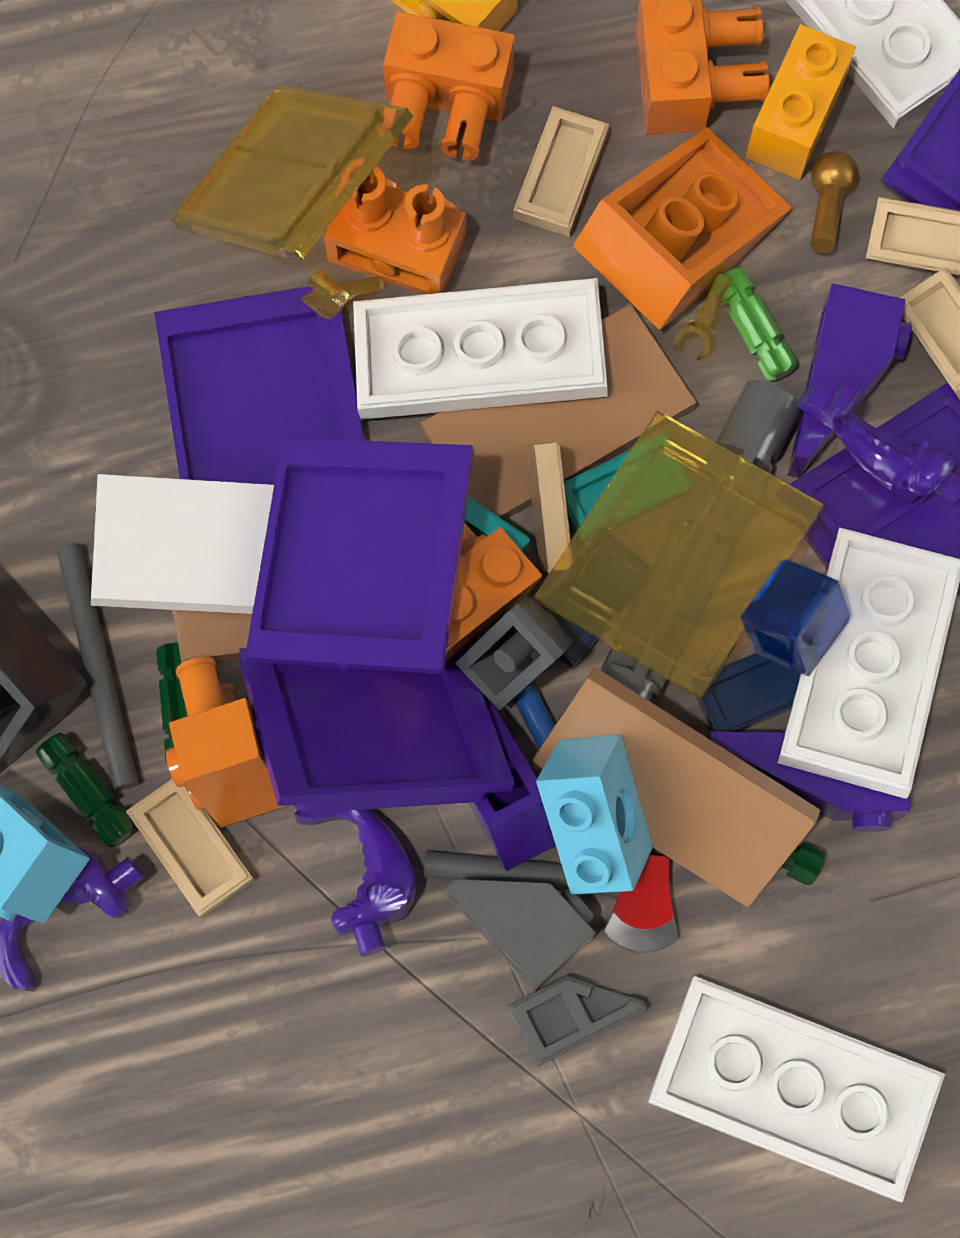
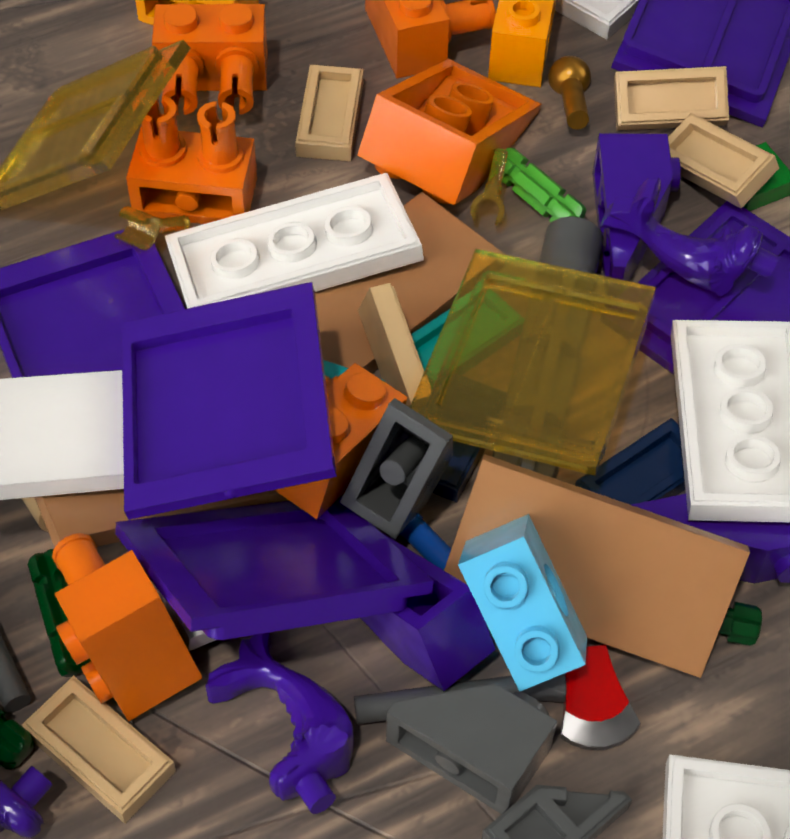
camera: 15 degrees left, 20 degrees down
(796, 617) = (663, 383): clear blue panel -> none

